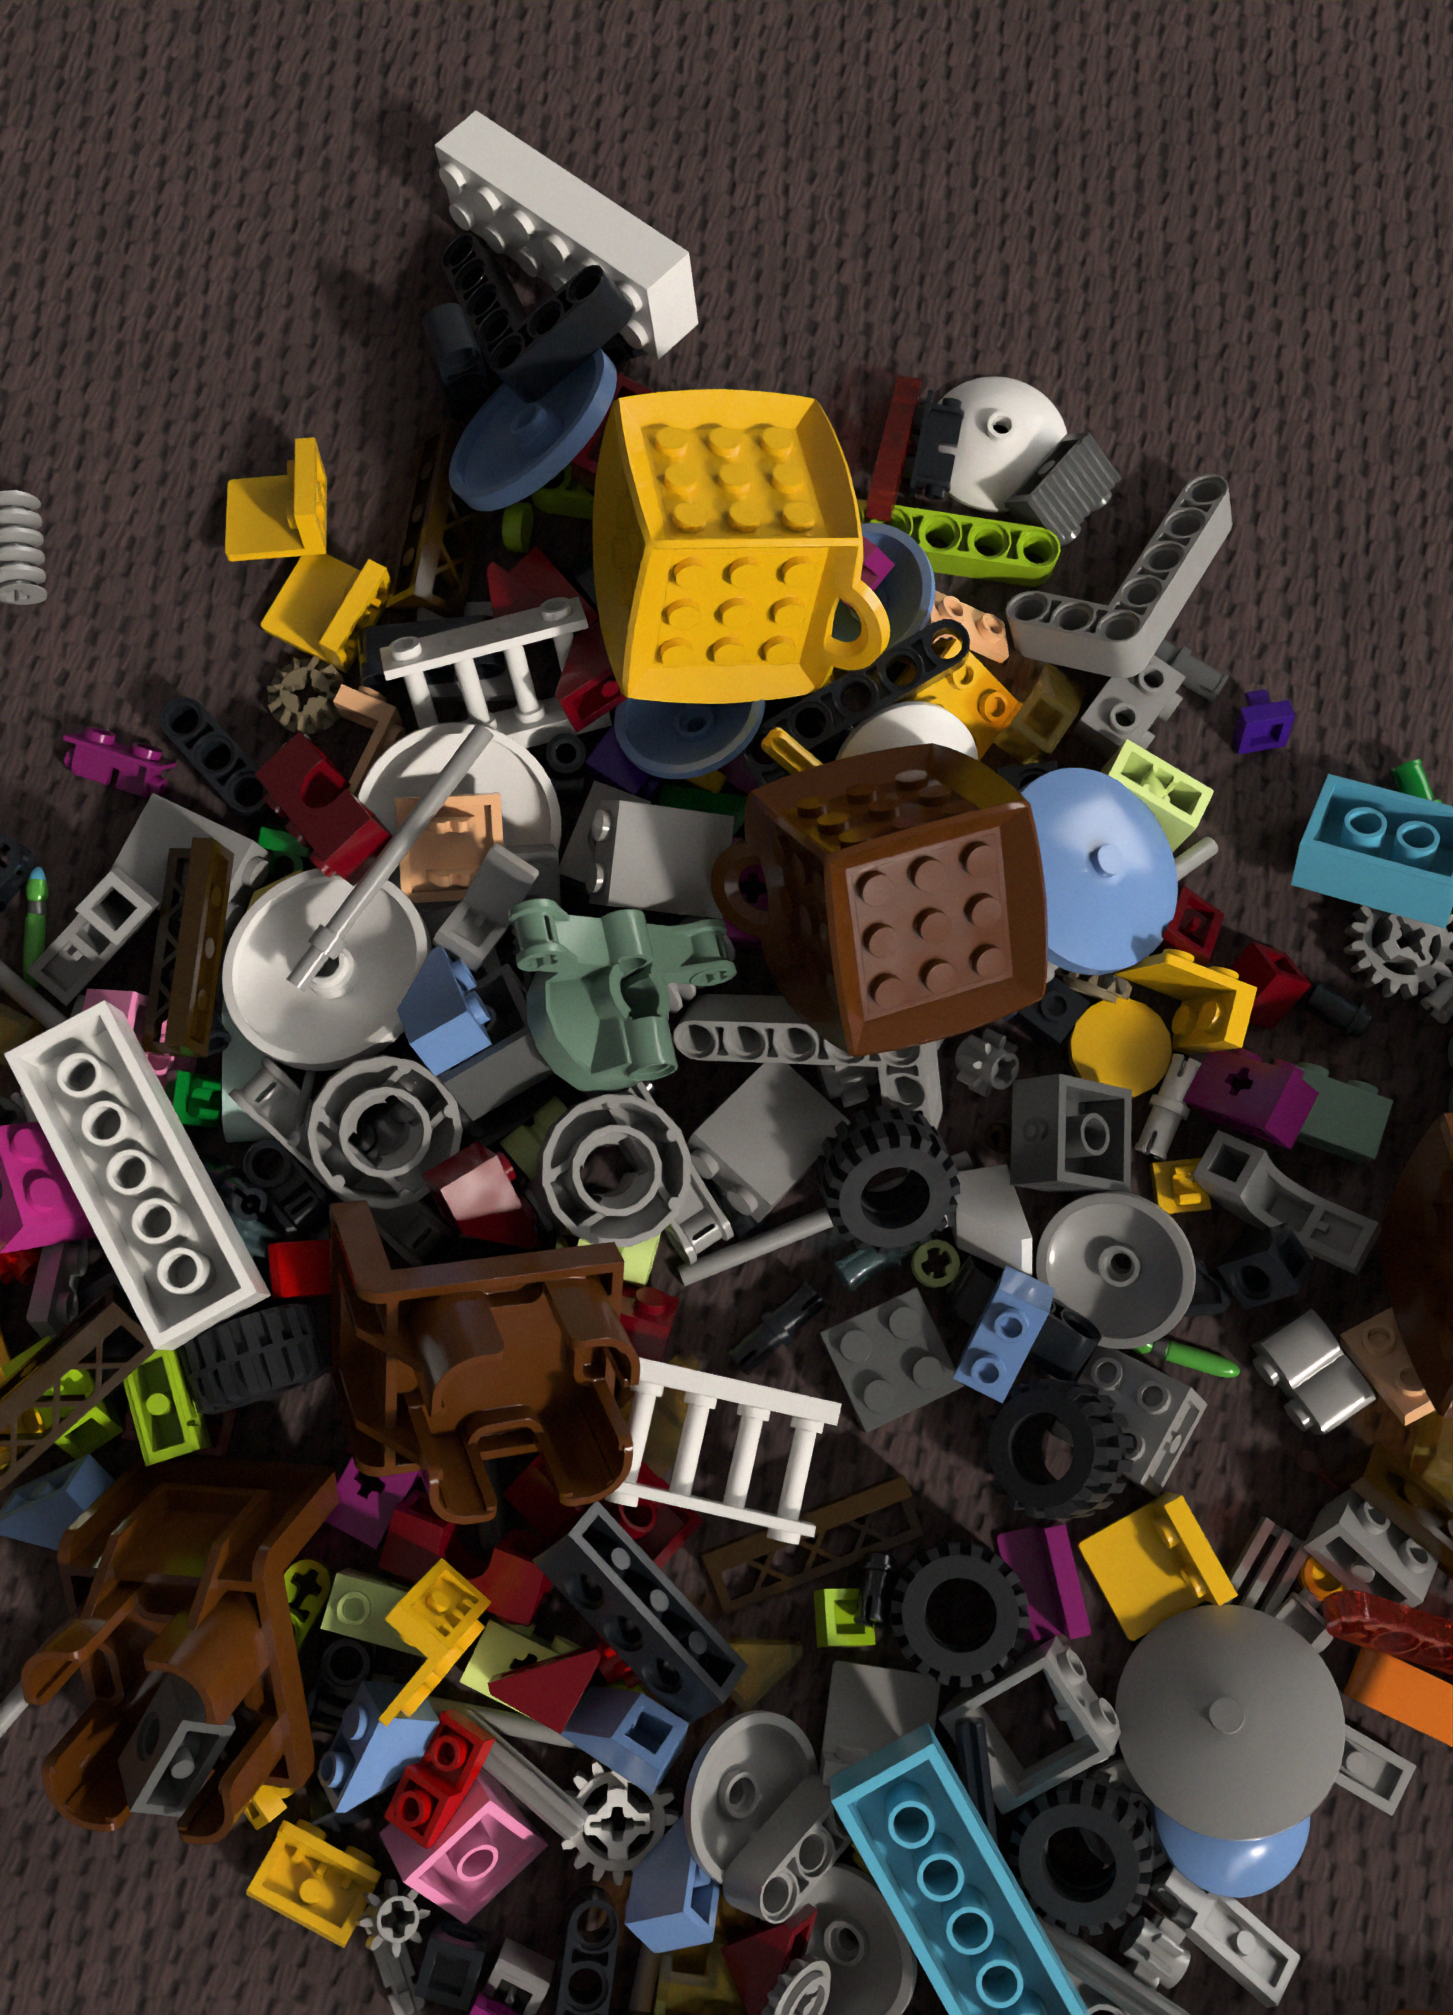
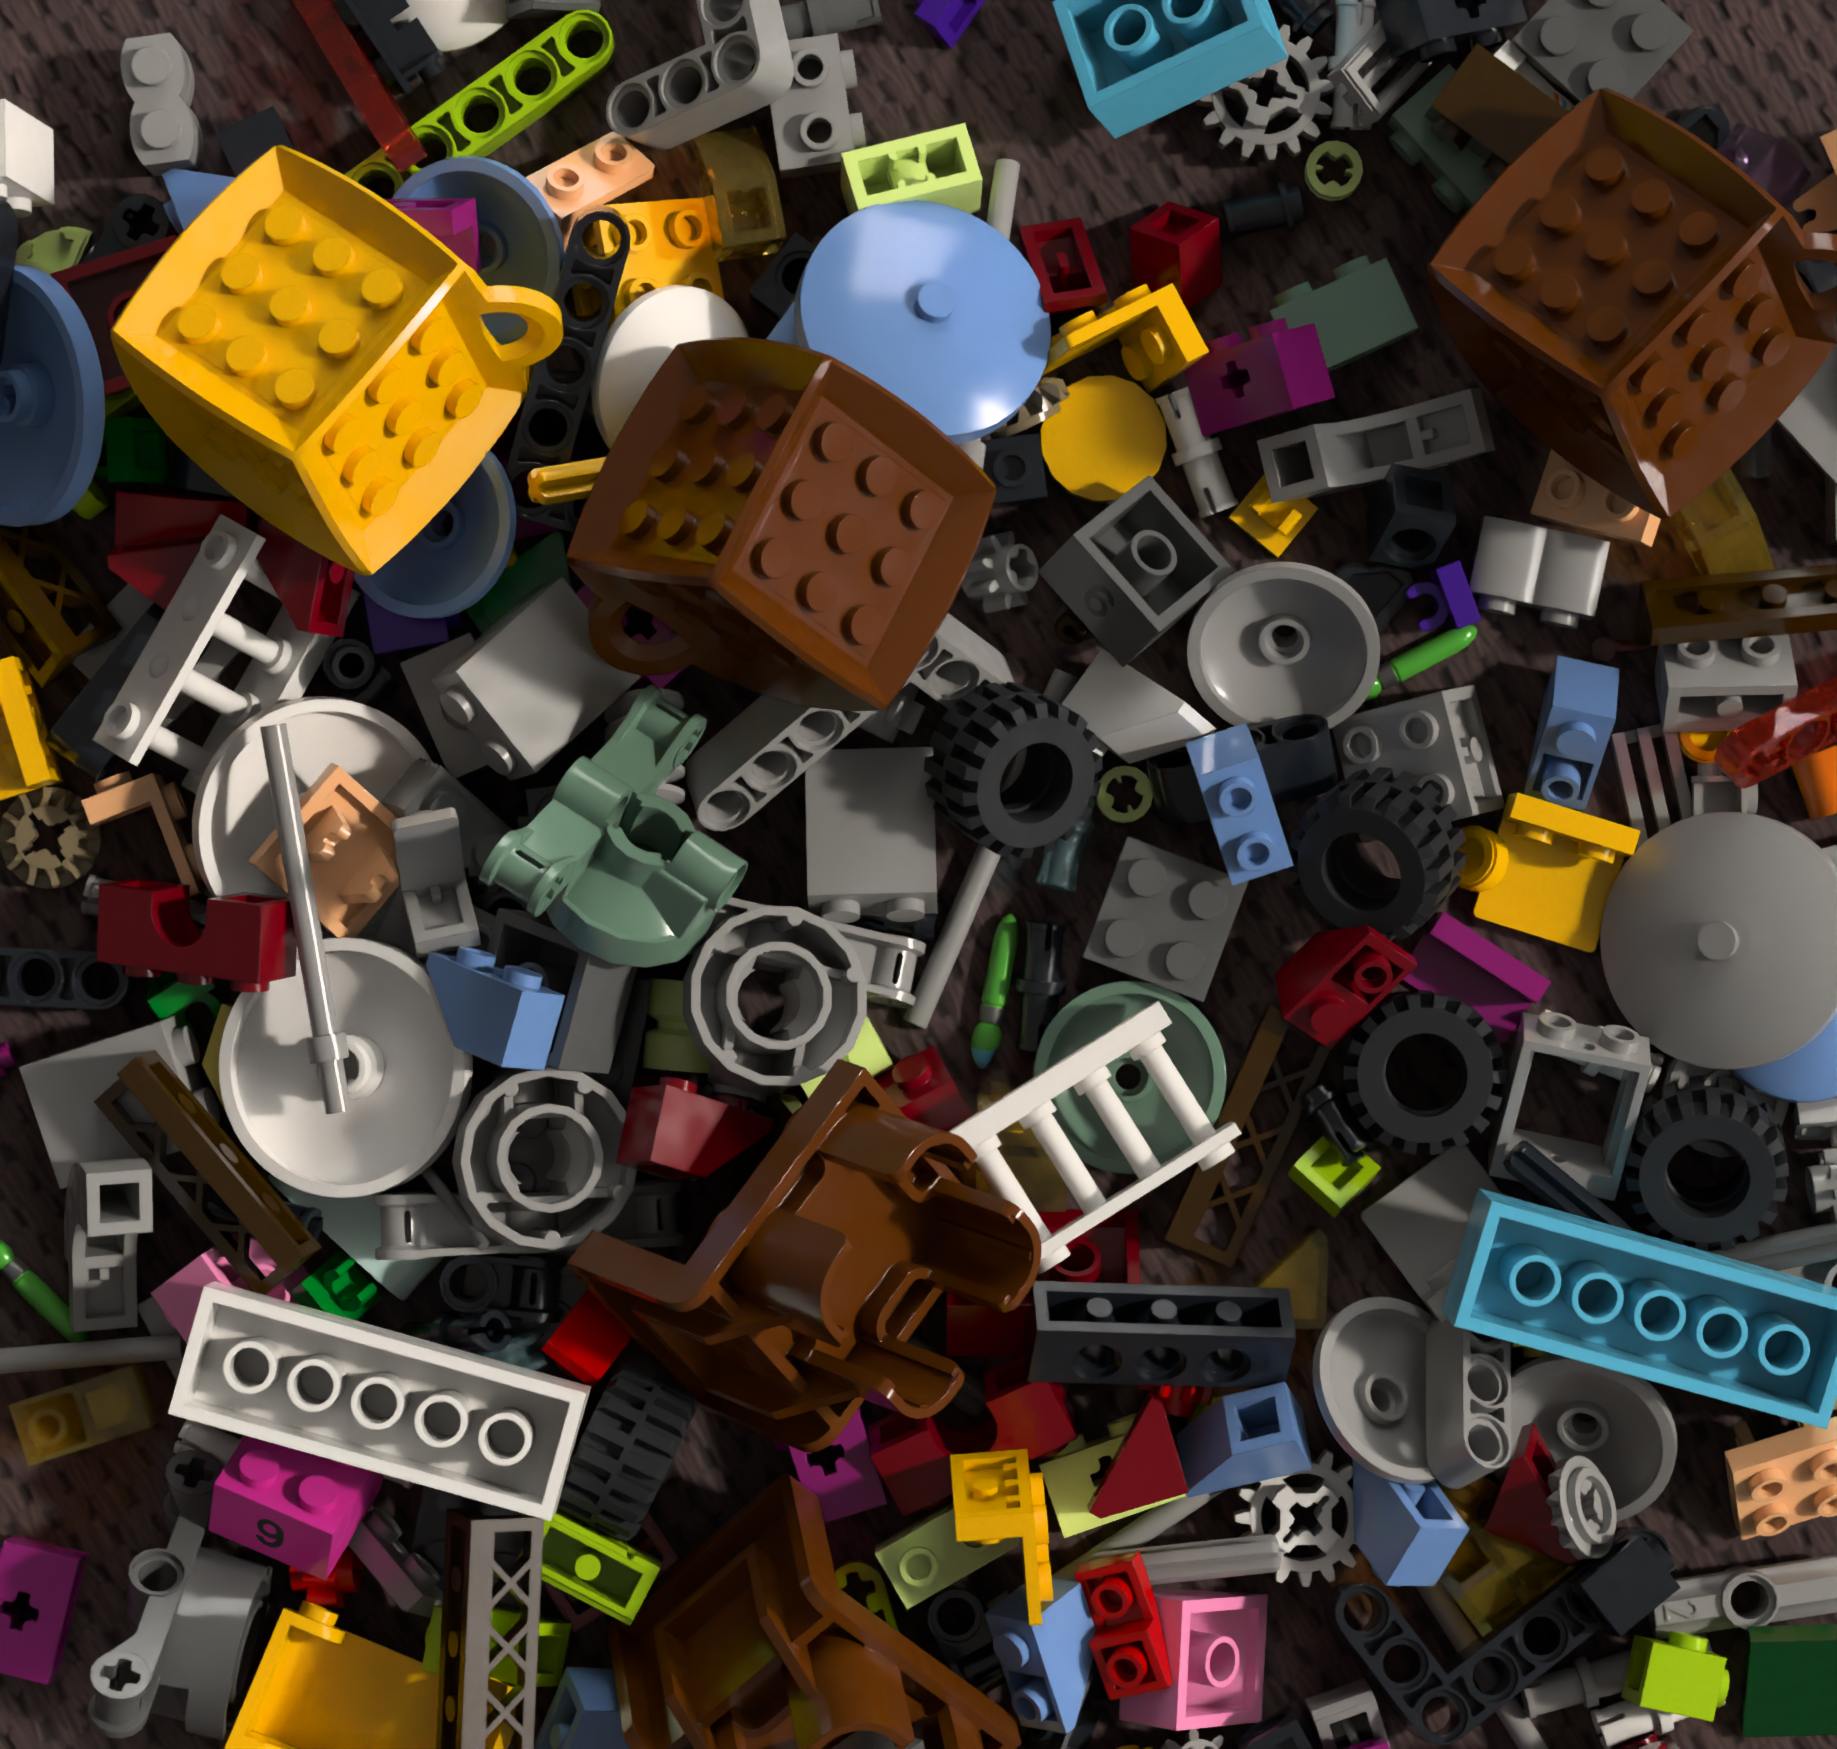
camera: 45 degrees left, 10 degrees up
(567, 534) = (134, 452): none -> green tile
(718, 1324) = (987, 1033): none -> bright green piece
(779, 362) = (162, 86): none -> light grey brick
(832, 1451) = (1189, 1045): none -> sand green dish
(963, 1503) = (1339, 980): none -> dark red slope
(1118, 1518) = (1485, 859): none -> yellow tile
(1246, 1335) = (1450, 596): none -> dark purple tile
(1247, 1491) = (1572, 732): none -> medium blue slope
(1390, 1036) = (1332, 190): none -> yellowish green bush

